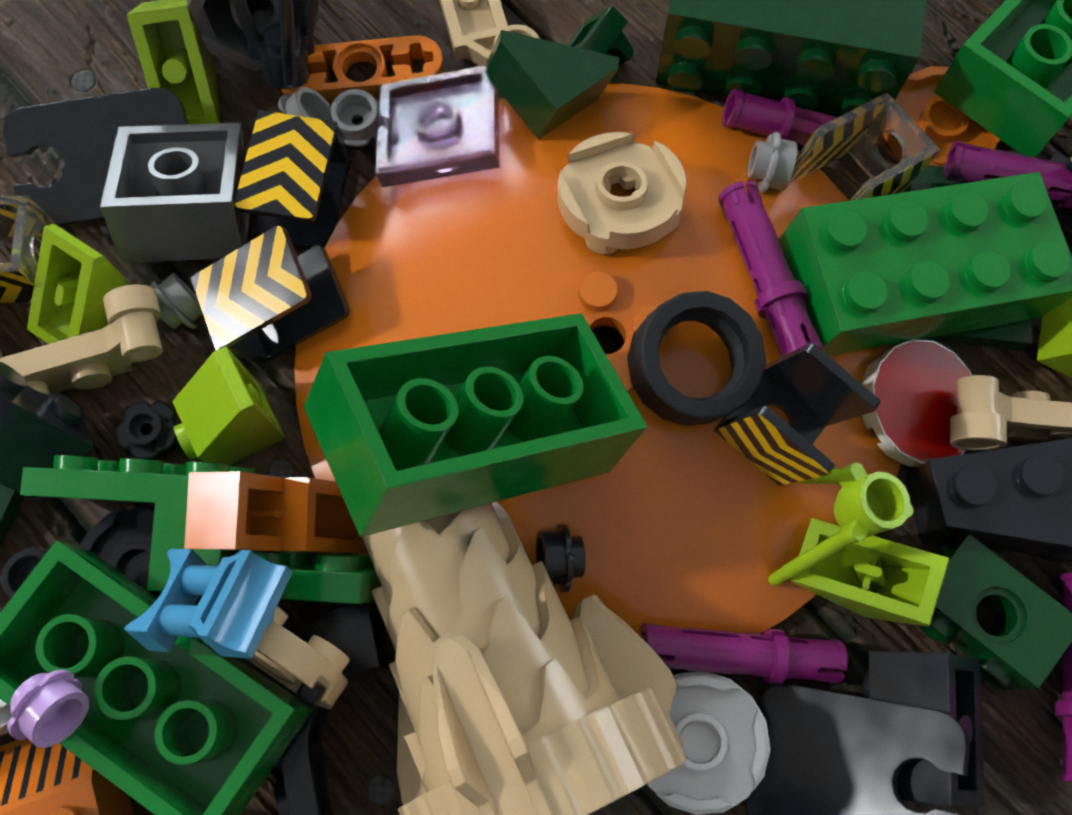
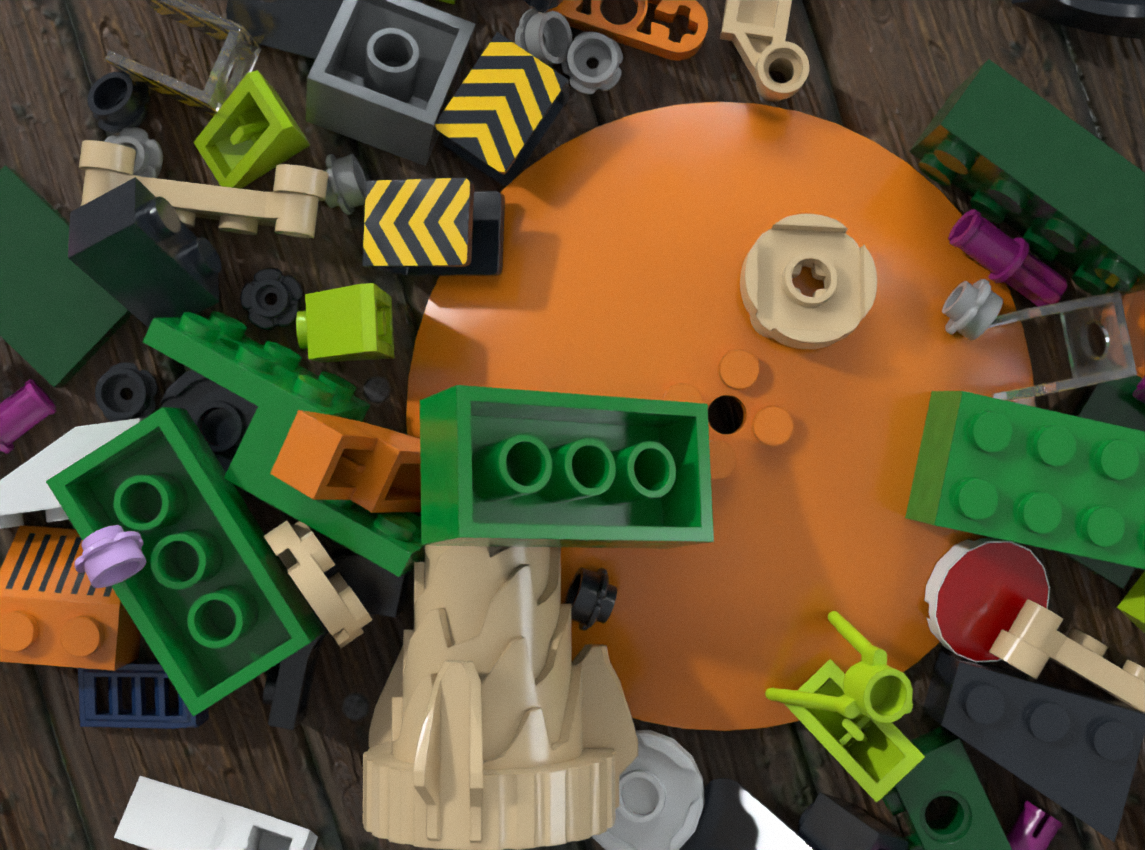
camera: 20 degrees right, 15 degrees up
(233, 608) = (294, 549): dark azure piece -> none
(437, 127) = (668, 116): clear purple plate -> none
(547, 79) = (793, 127): dark green slope -> none
(604, 35) = (862, 88): dark green tile -> none
(739, 336) = (829, 518): black tyre -> none
(761, 655) = (731, 752): magenta pin -> none
(778, 293) = (906, 426): magenta pin -> none
(812, 395) = (877, 565): black piece -> none

